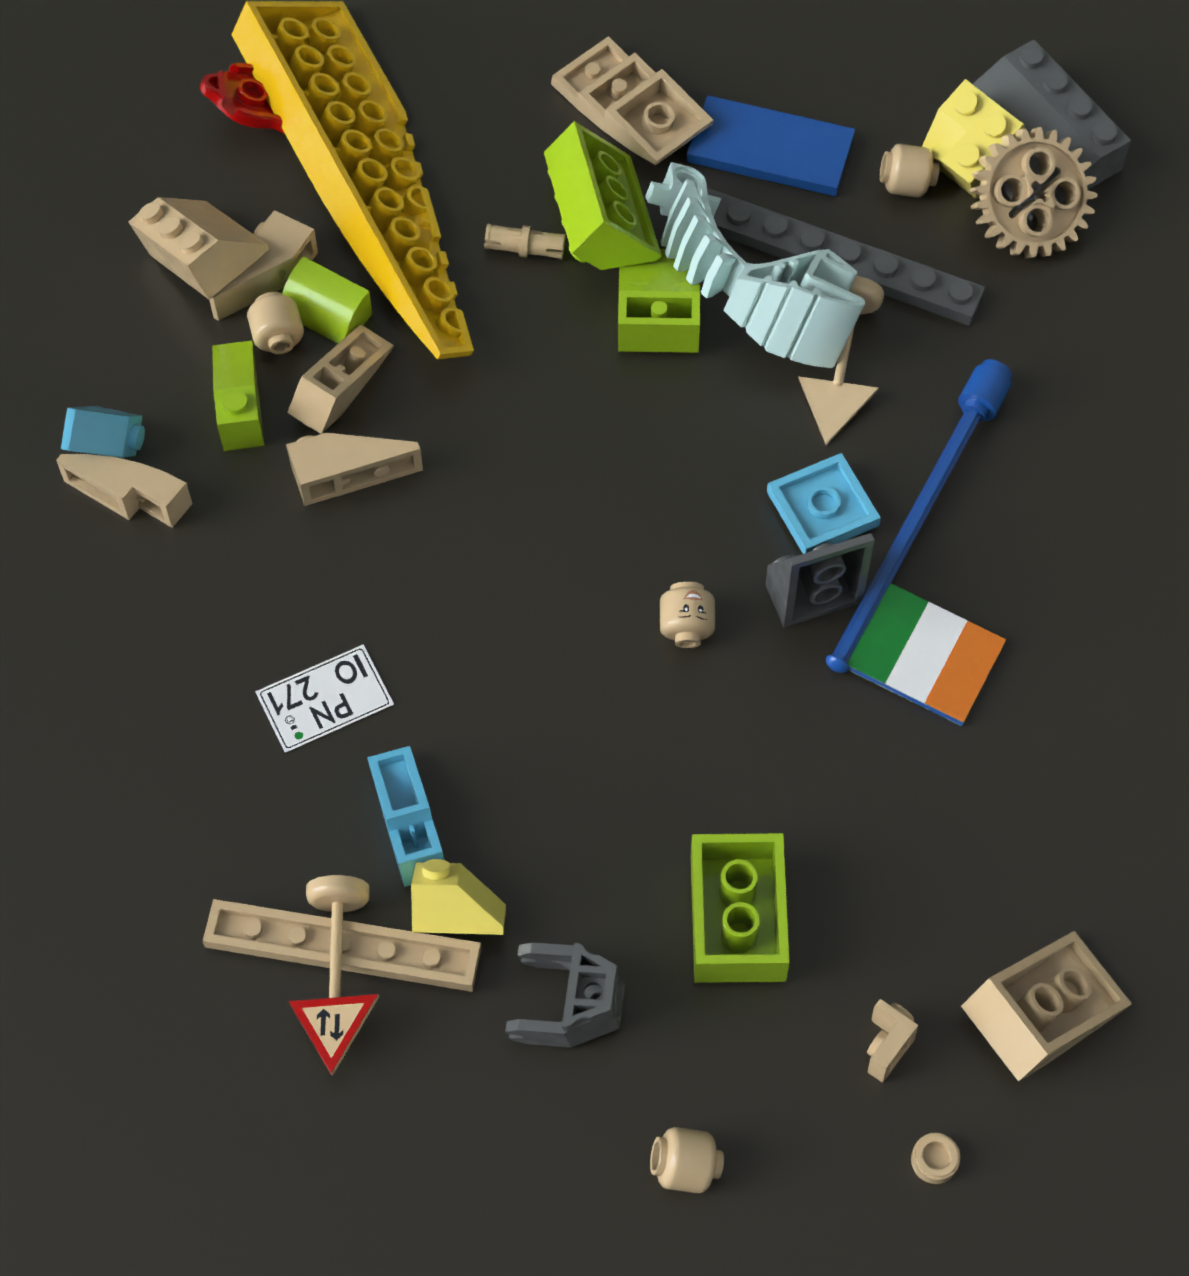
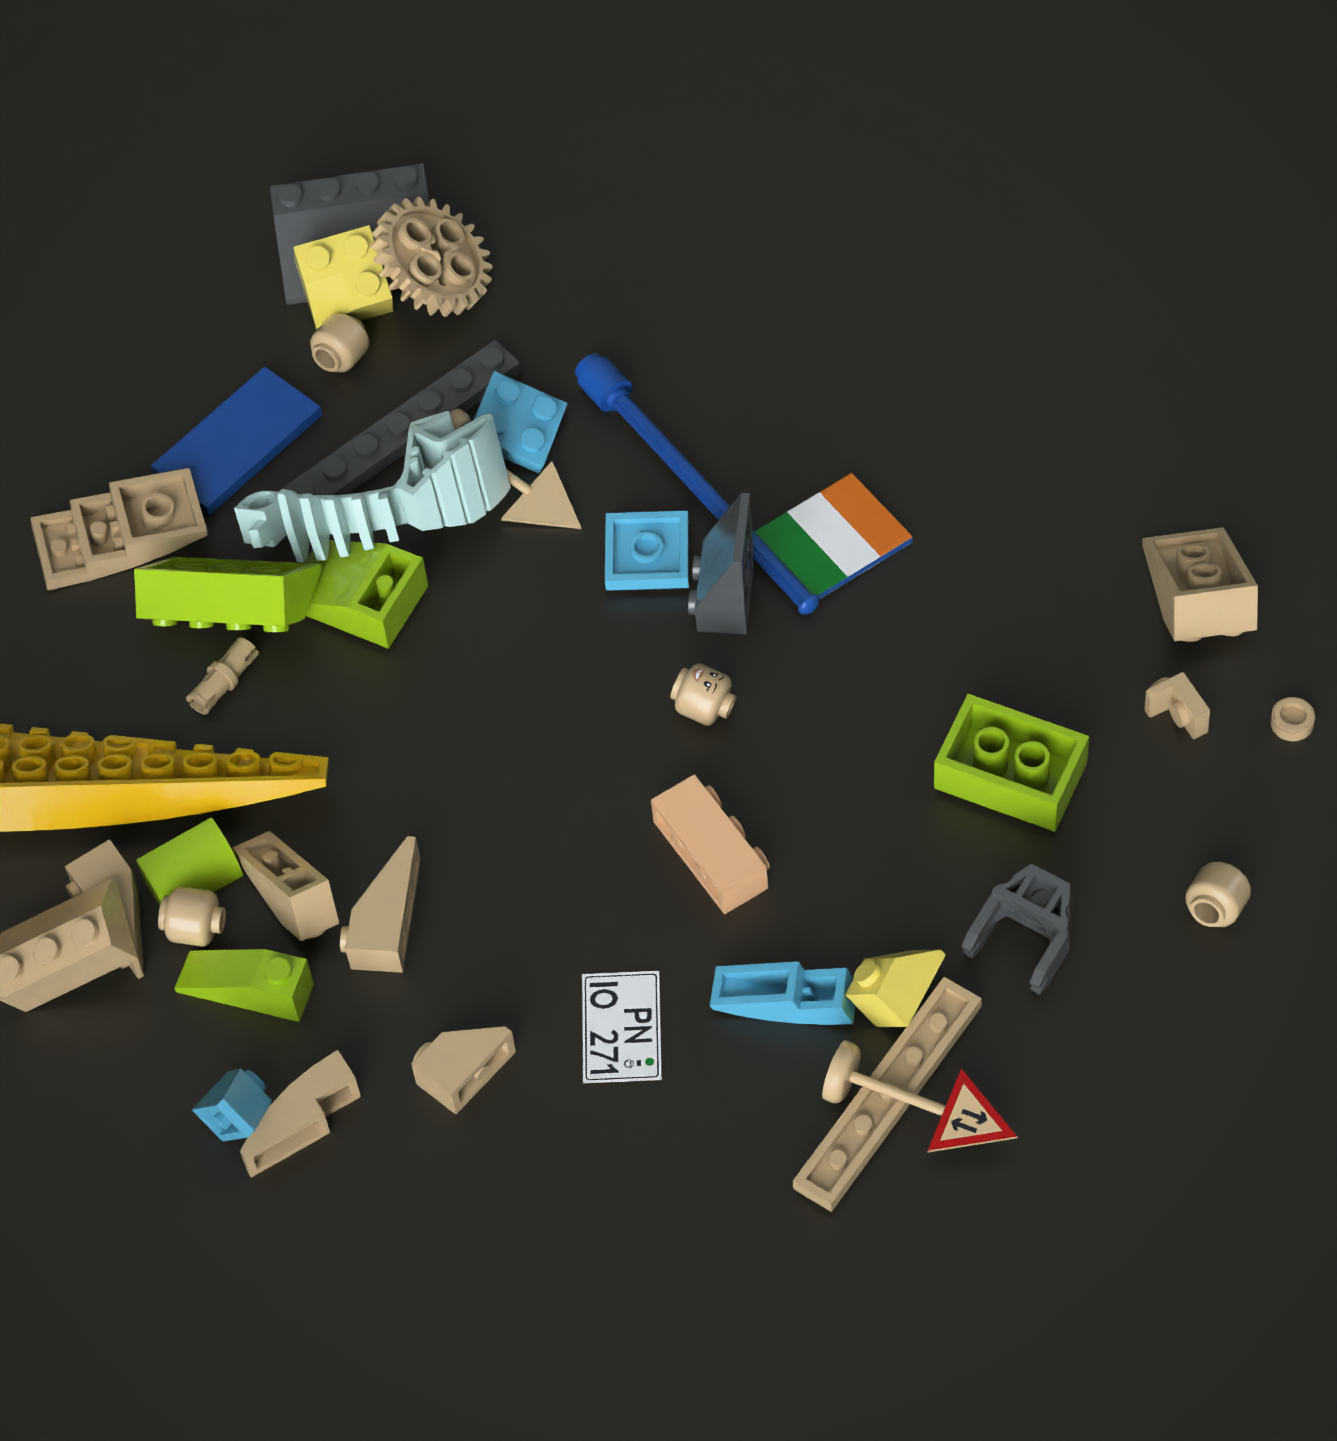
camera: 60 degrees left, 5 degrees down
(220, 585) = (461, 1063): none -> tan slope
(533, 687) = (711, 843): none -> light nougat brick
(902, 341) = (523, 420): none -> medium azure plate

